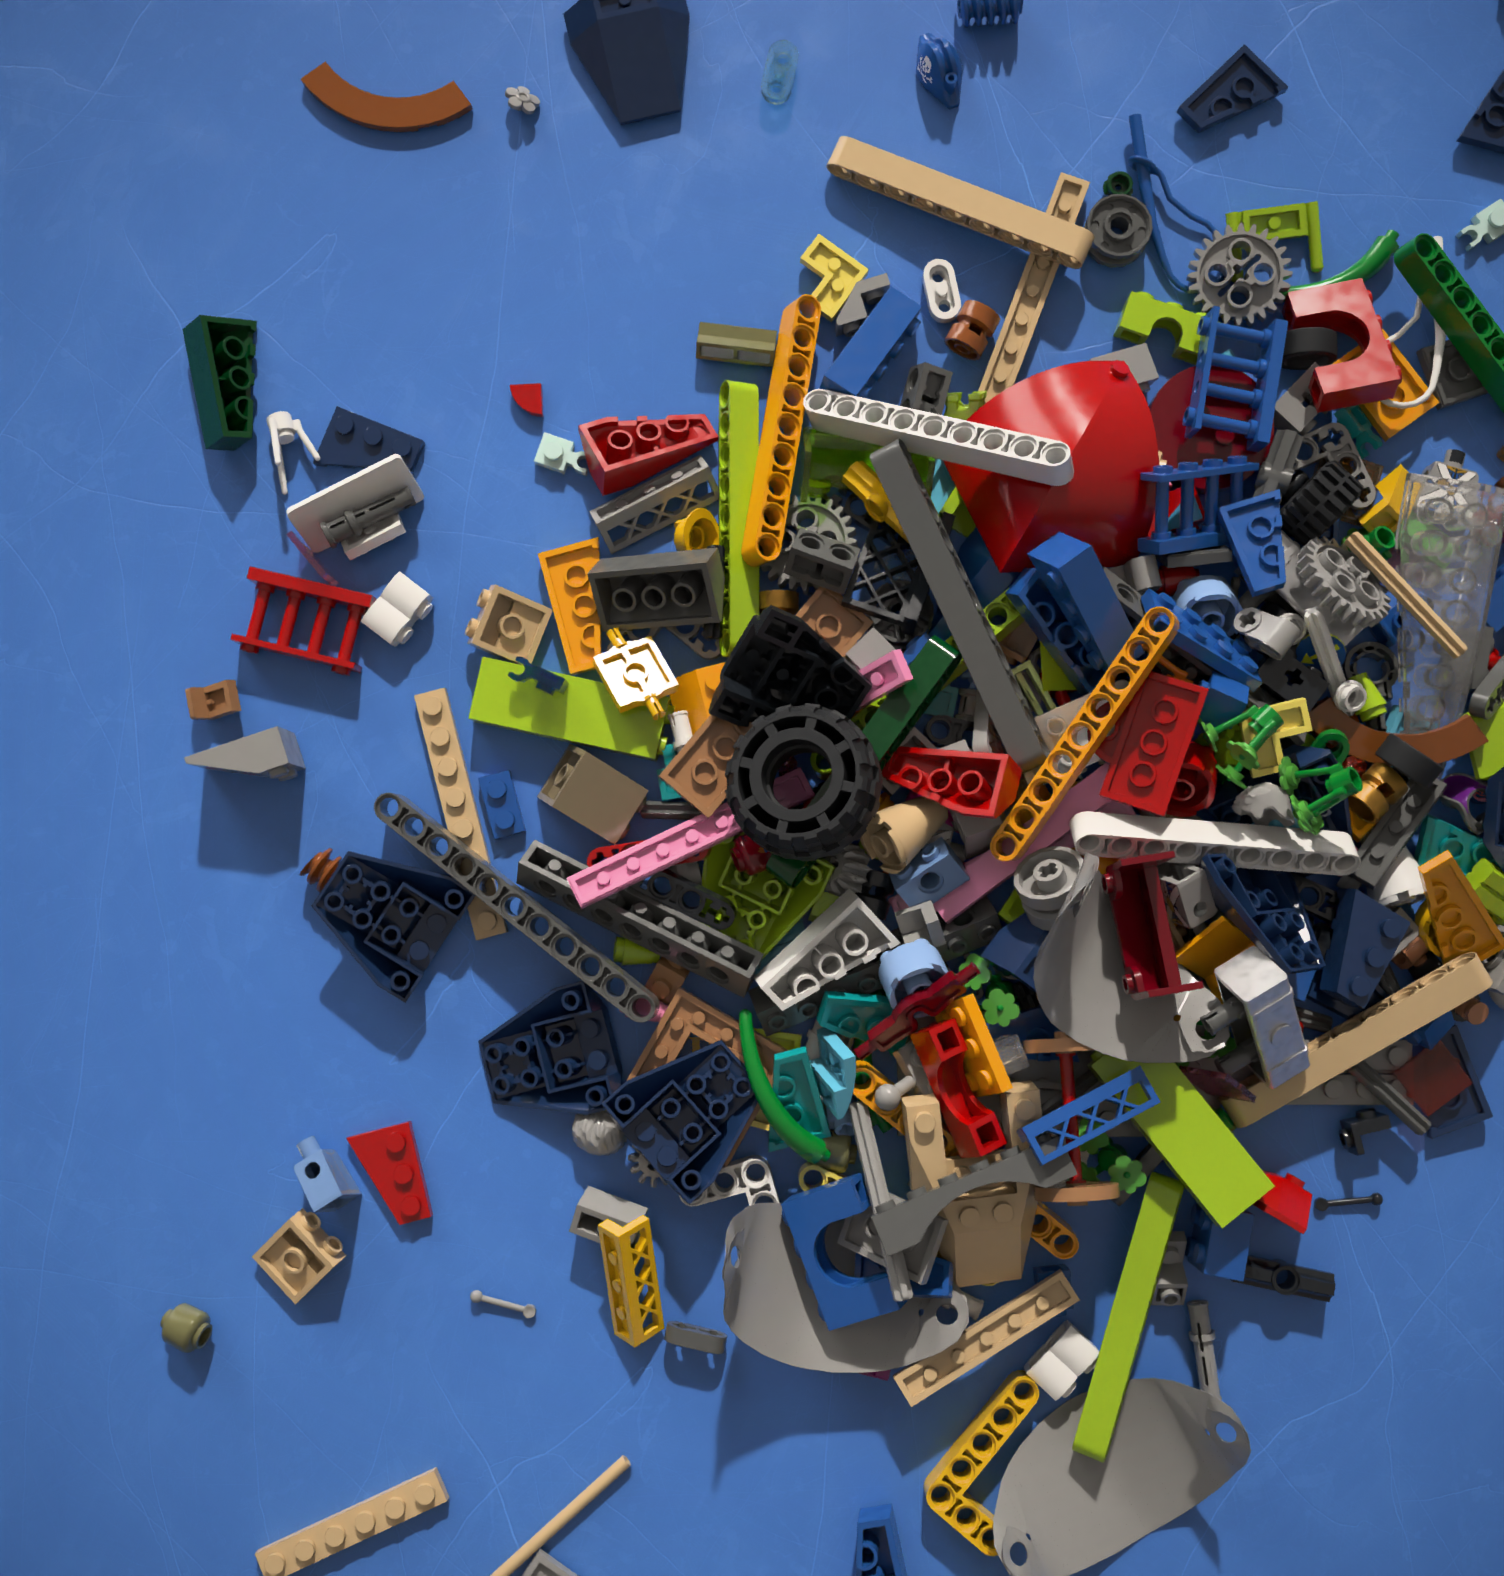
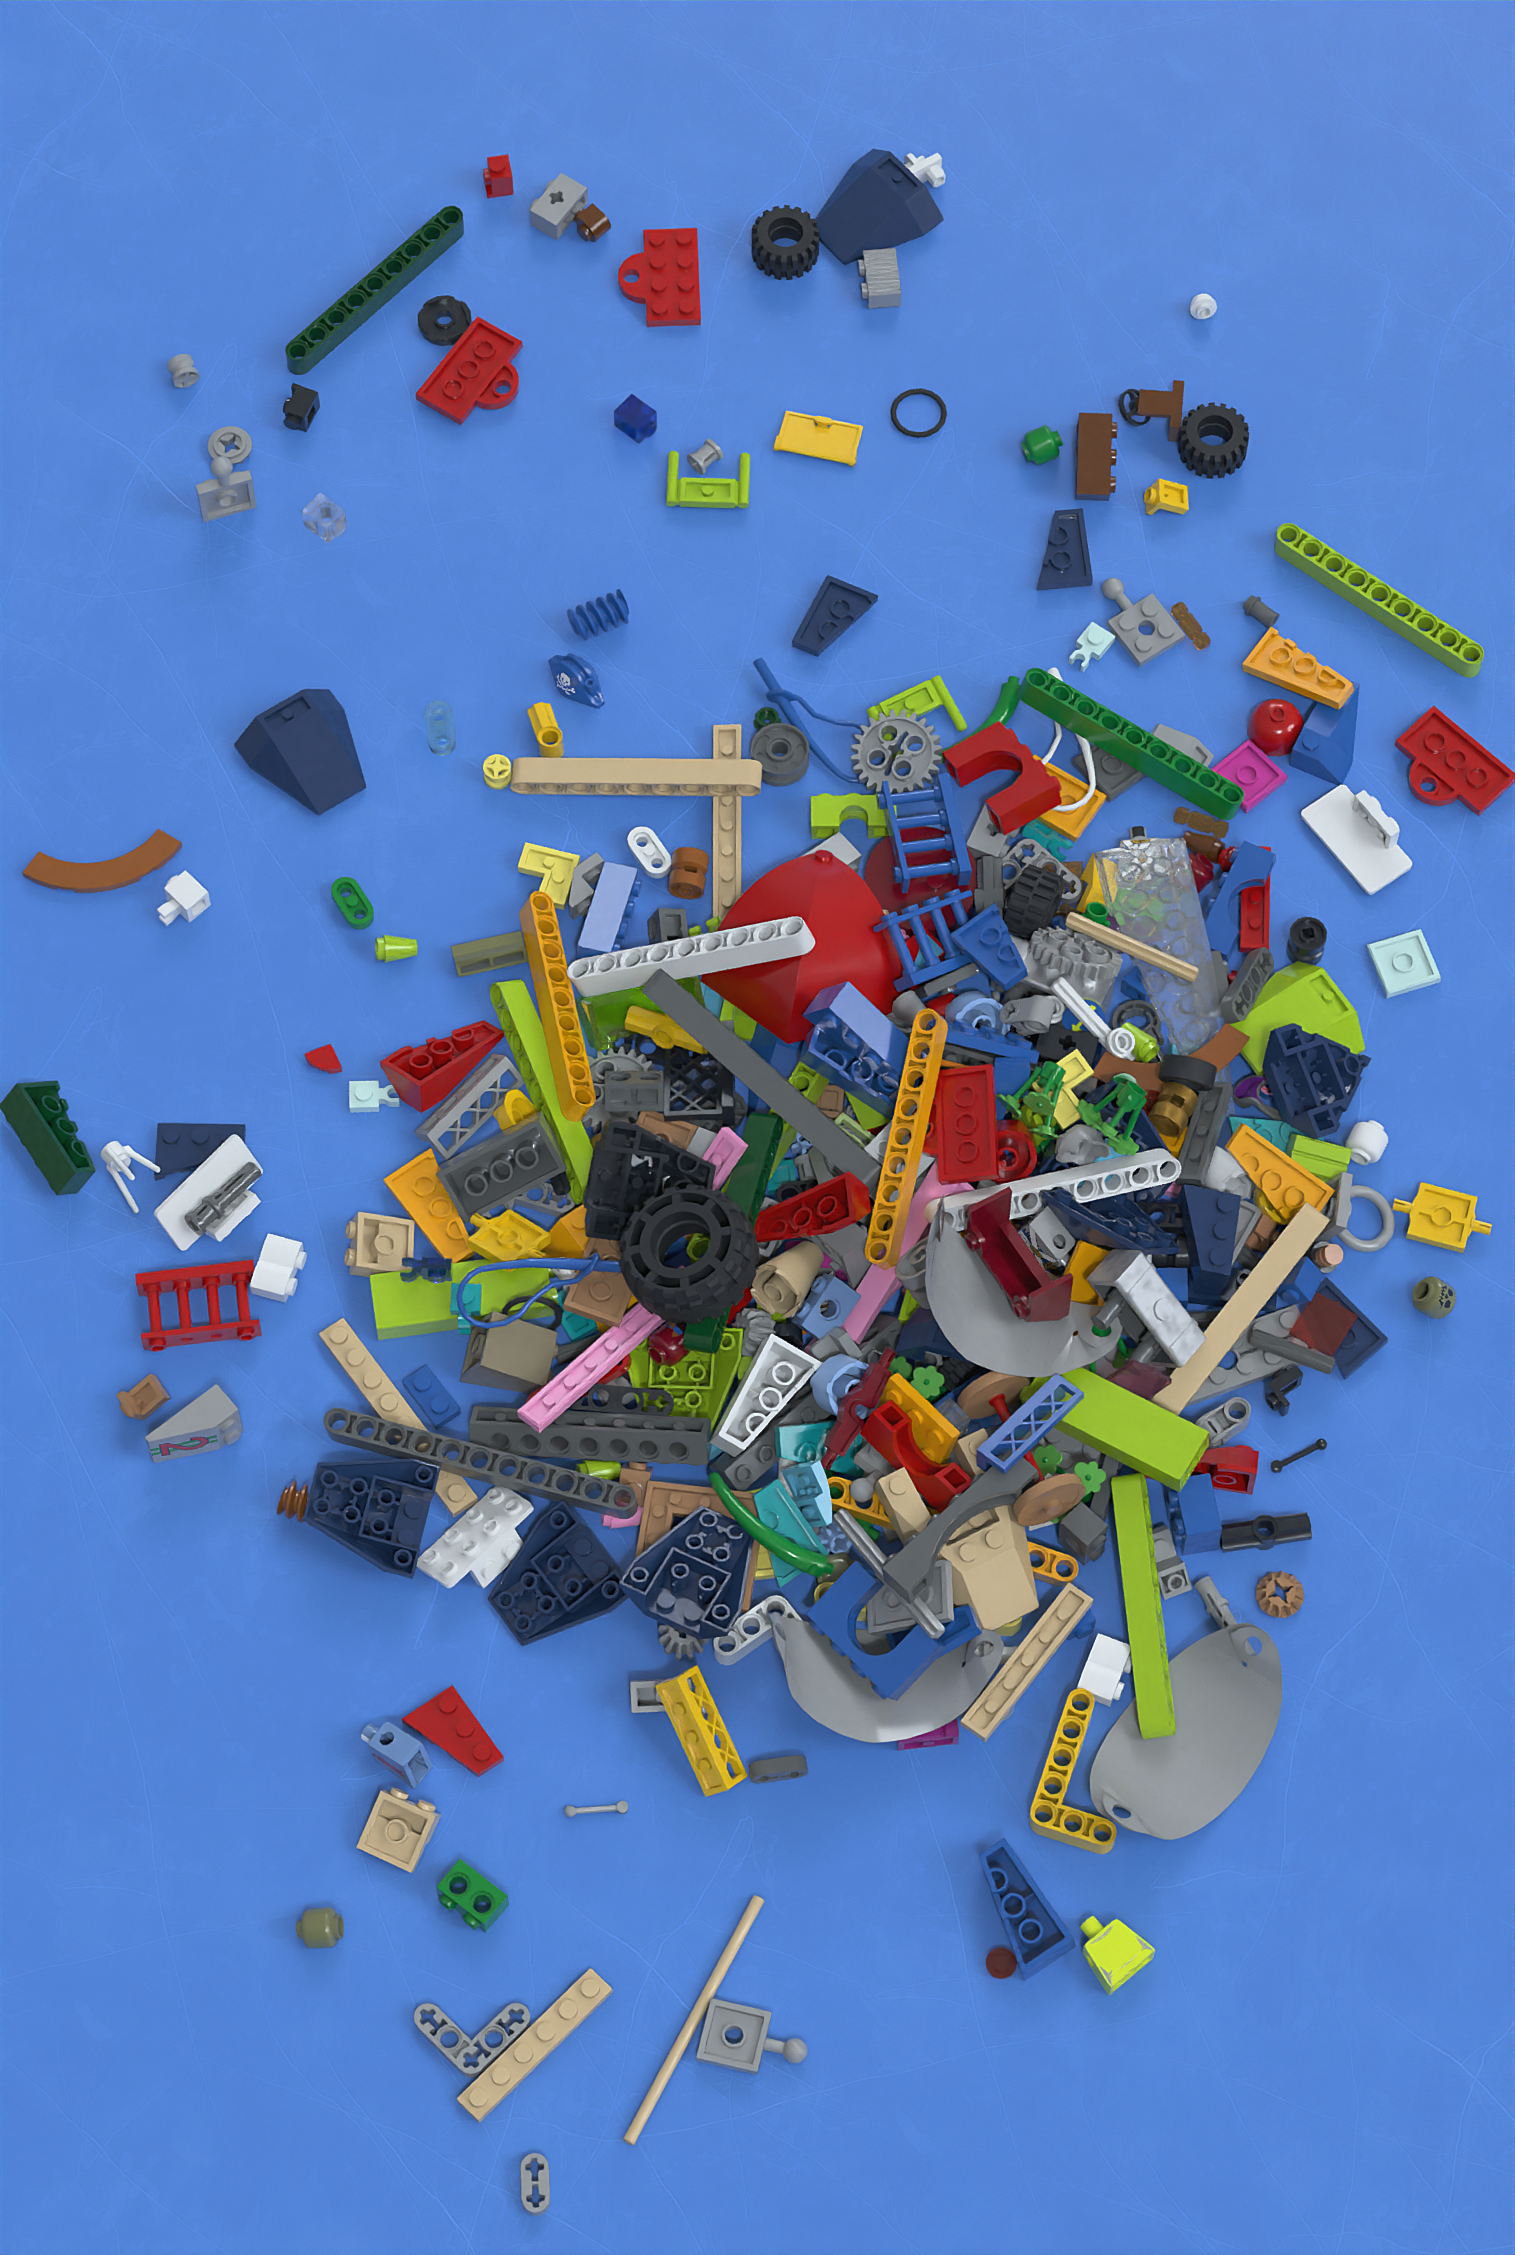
camera: 25 degrees left, 20 degrees down
(286, 1502) = (467, 2047): none -> light grey beam
(312, 558) = (186, 1248): clear pink piece -> none
(354, 1349) = (477, 1891): none -> green brick
(452, 168) = (183, 897): none -> white brick
(487, 981) = (479, 1541): none -> white bracket
(522, 100) = (222, 823): light grey plant -> none
(567, 725) = (471, 1302): none -> teal plate
(597, 1134) = (626, 1629): light grey hair -> none
(616, 748) = (551, 1304): none -> black piece
(619, 237) = (353, 905): none -> green plate
(643, 302) = (394, 948): none -> lime cone
(694, 744) = (585, 1266): none -> blue piece
(818, 135) = (492, 767): none -> light yellow wheel
(886, 115) = (546, 730): none -> yellow piece
(1100, 1221) = (1083, 1534): none -> dark grey brick
(1259, 1333) = (1275, 1606): none -> medium nougat gear
(1281, 1142) = (1222, 1425): none -> light grey piece
(1308, 346) = (974, 788): black tyre -> none

